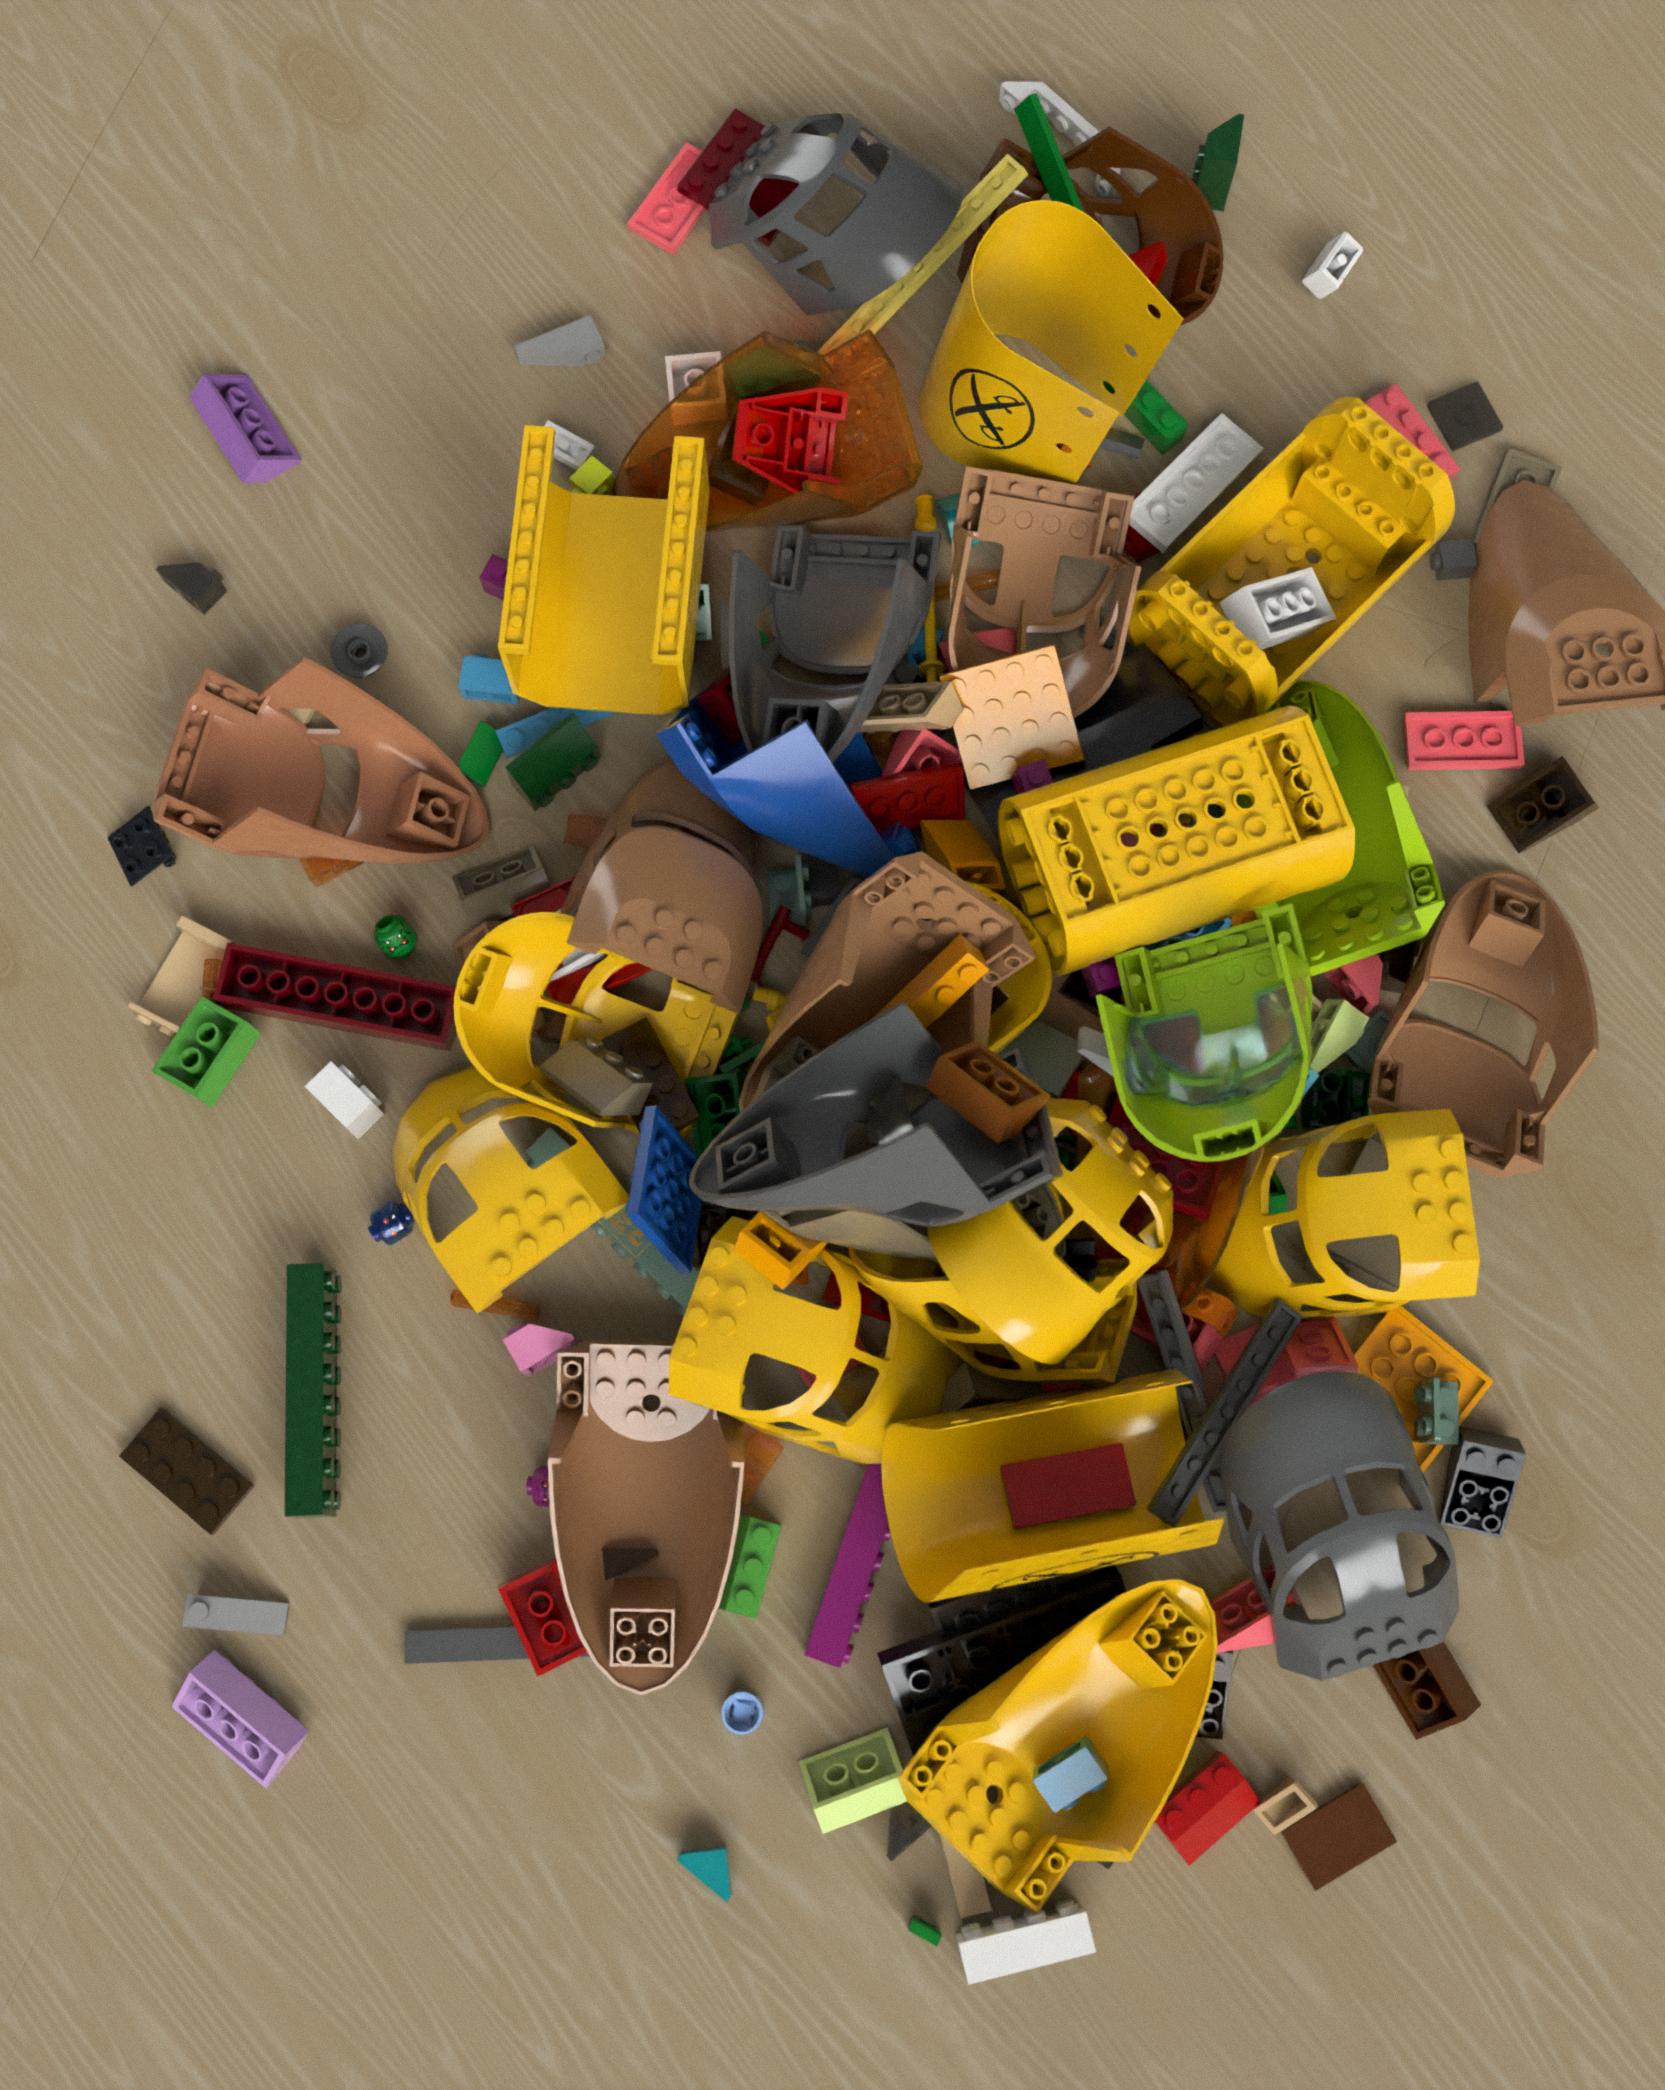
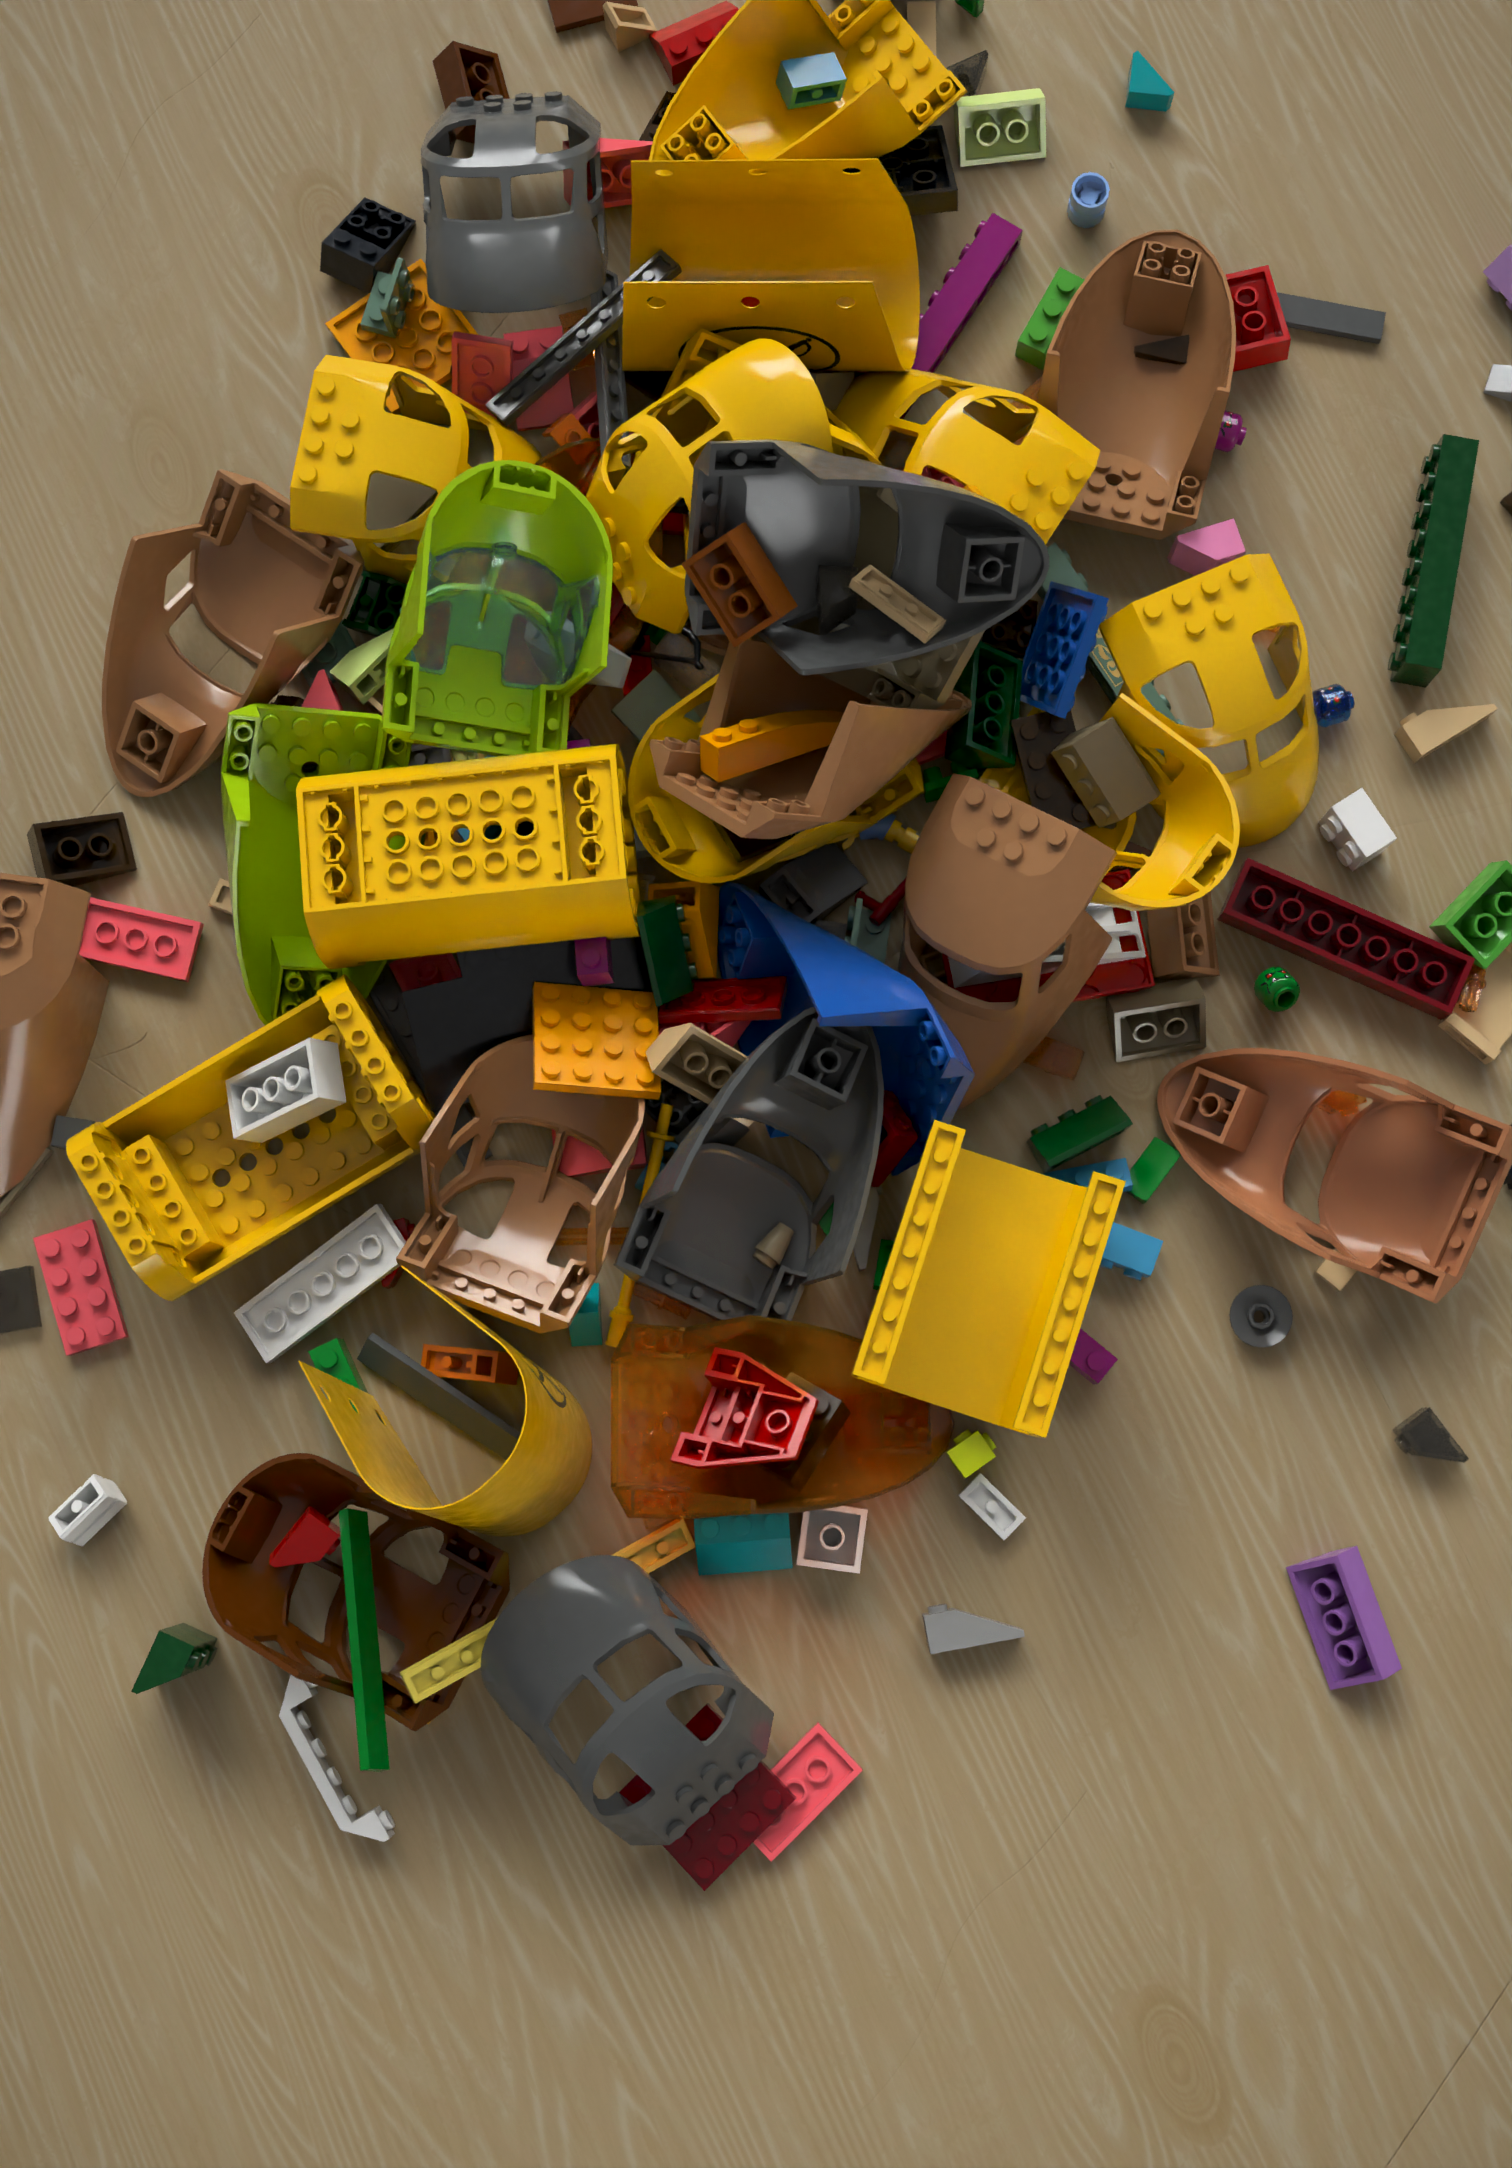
camera: 160 degrees left, 5 degrees up
(284, 1224) = (1438, 727): none -> tan slope
(806, 604) = (773, 1246): none -> dark tan cone
(829, 1115) = (897, 603): none -> tan tile
(972, 820) = (666, 948): none -> dark green slope

